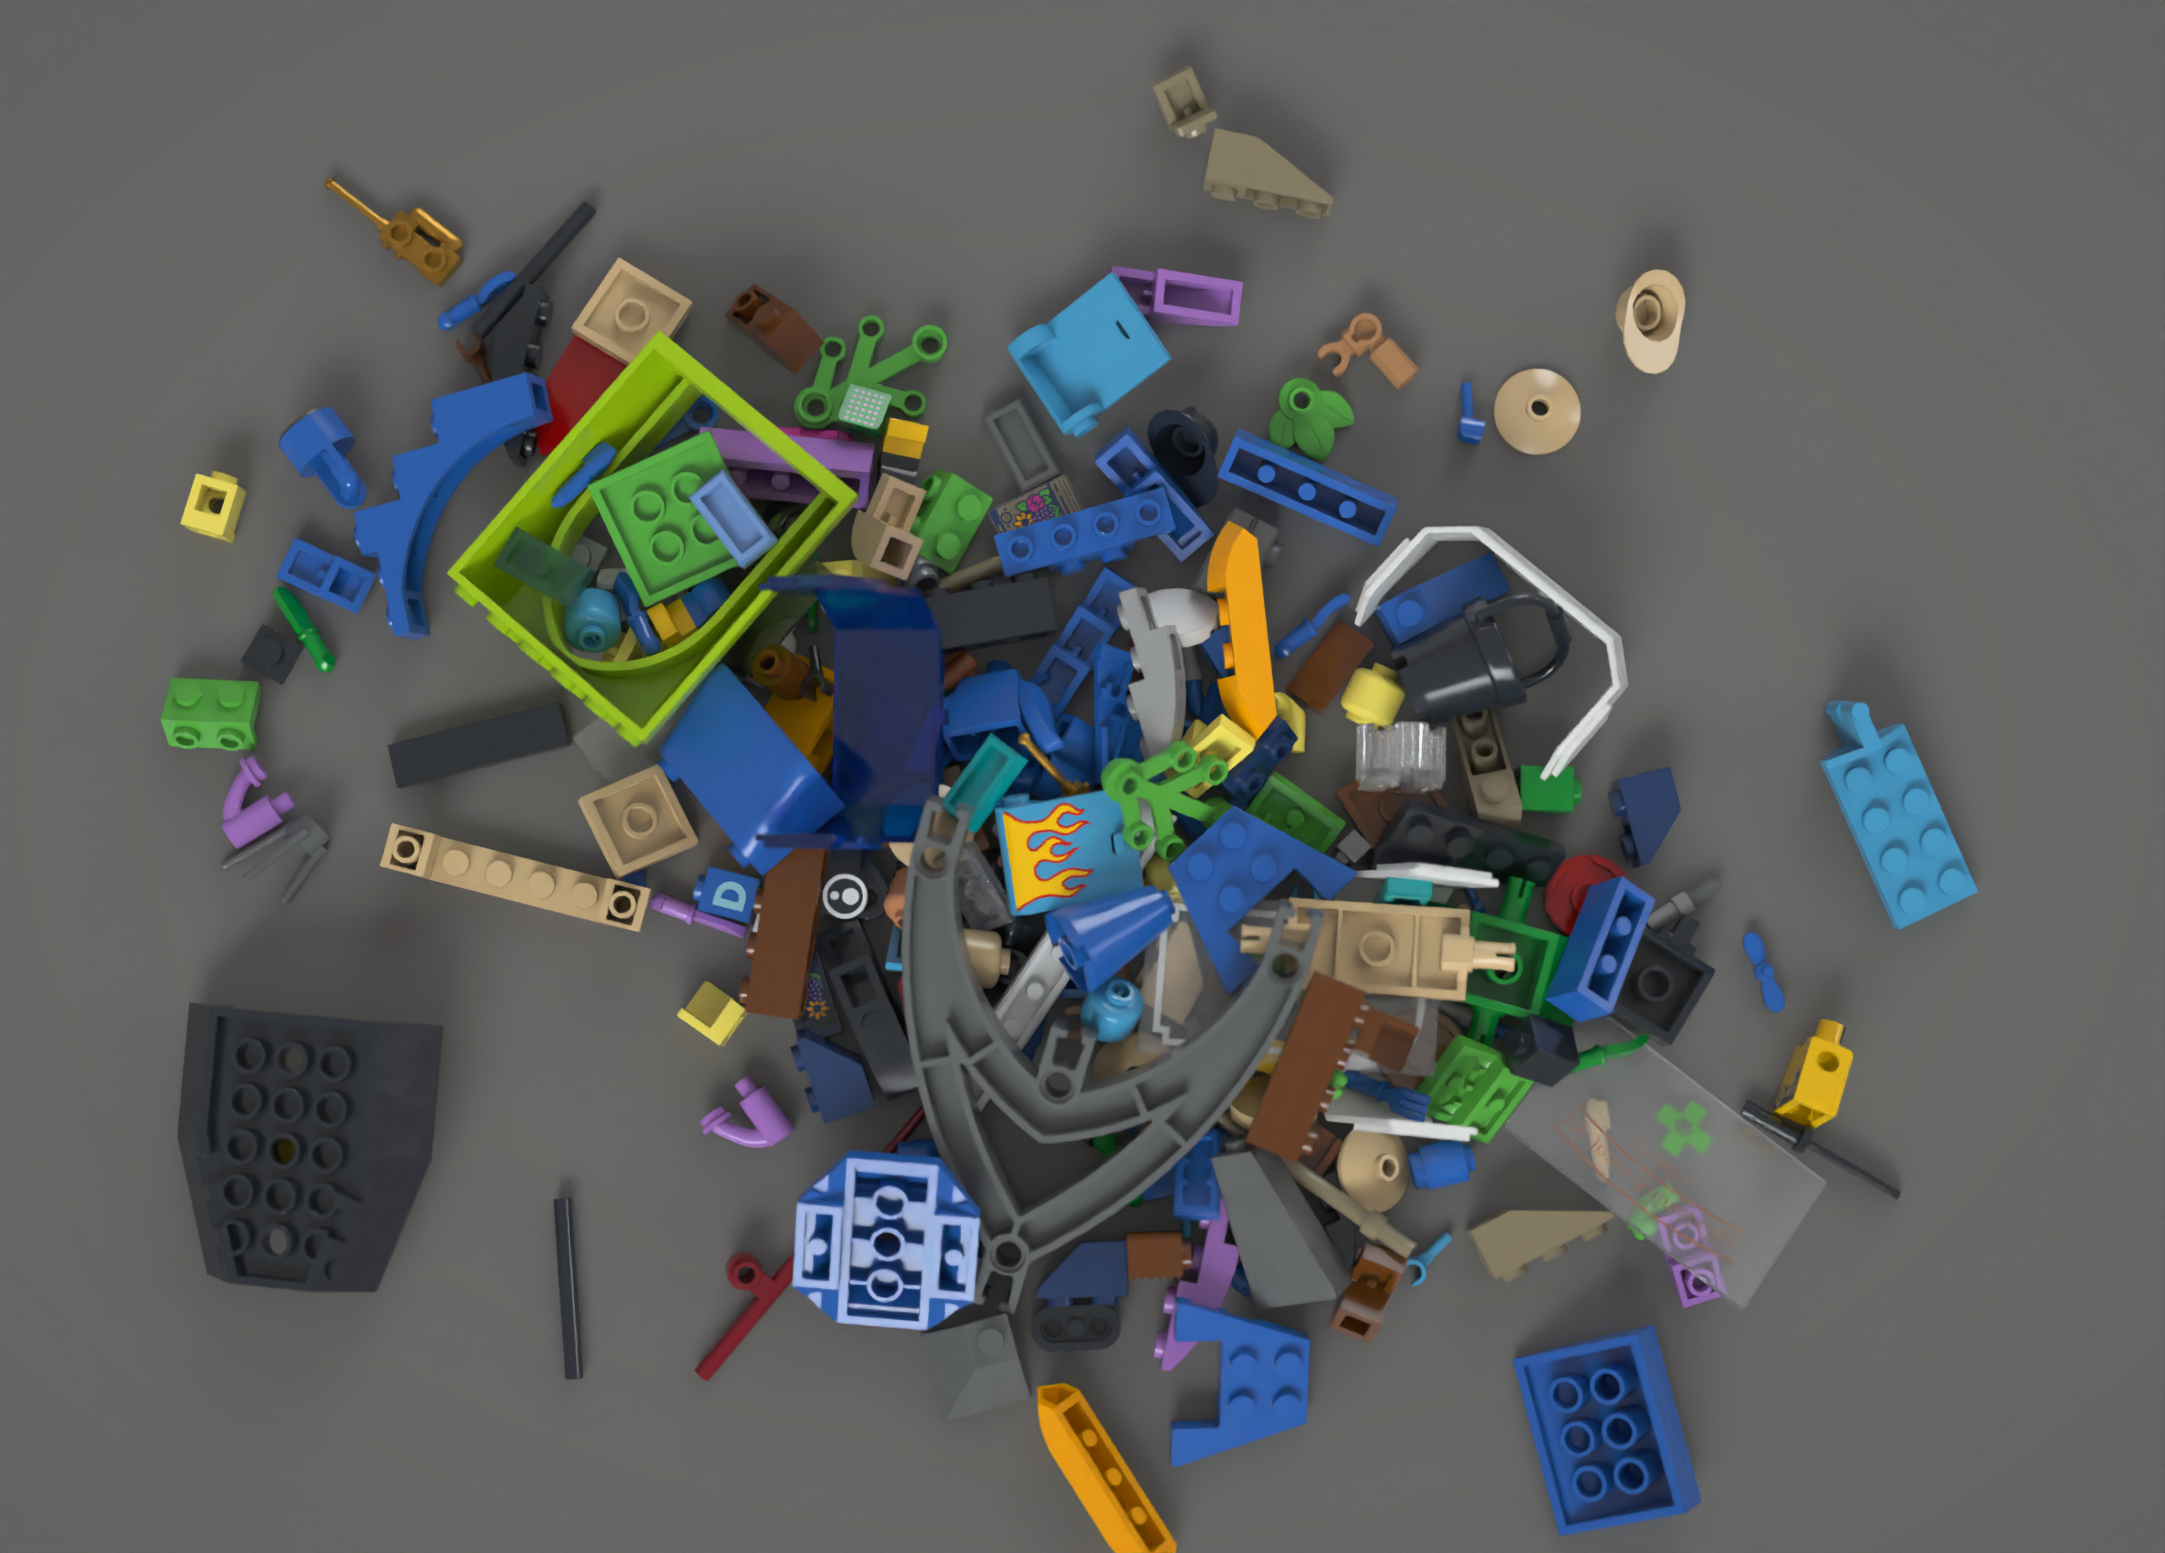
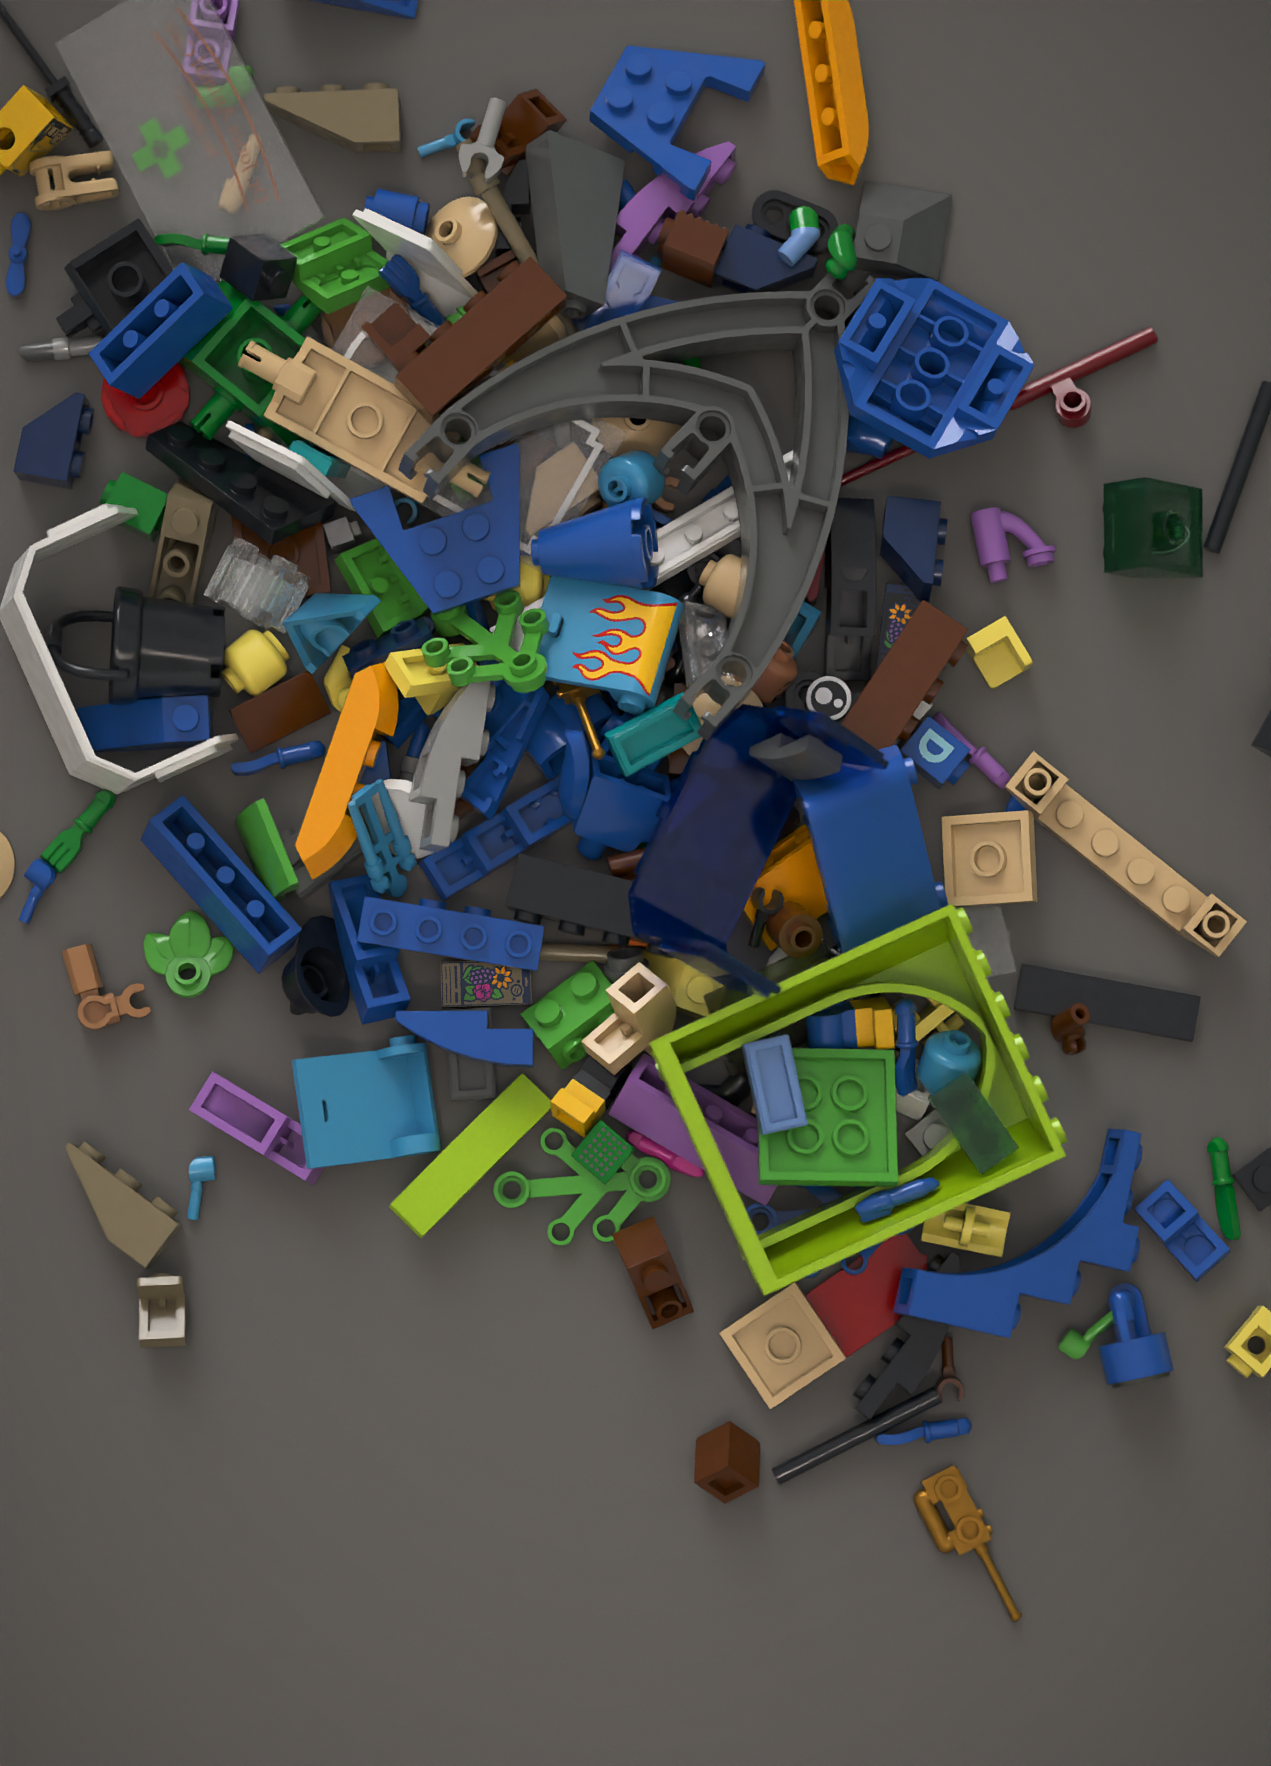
camera: 155 degrees left, 0 degrees up
(375, 434) = (1076, 1344): none -> bright green hand
(499, 486) = (969, 1229): none -> light yellow hips
(500, 705) = (1068, 1028): none -> reddish brown arm
(621, 1190) = (1153, 529): none -> clear green slope
(636, 197) = (727, 1462): none -> reddish brown panel
(838, 814) = (797, 759): none -> dark grey slope
(978, 355) = (471, 1155): none -> lime slope
(1018, 1313) = (842, 251): none -> green arm
(1027, 452) = (468, 1036): none -> blue slope
(1060, 1314) = (804, 233): none -> medium blue arm
(1157, 563) = (393, 883): none -> dark azure piece
(1208, 240) = (200, 1170): none -> dark azure hand
(1279, 532) = (266, 850): none -> bright green slope
(1325, 758) = (325, 624): none -> dark azure slope
(1389, 1258) = (485, 143): none -> light grey bar
(1459, 468) = (69, 842): none -> green piece
(1761, 1063) = (68, 192): none -> tan piece

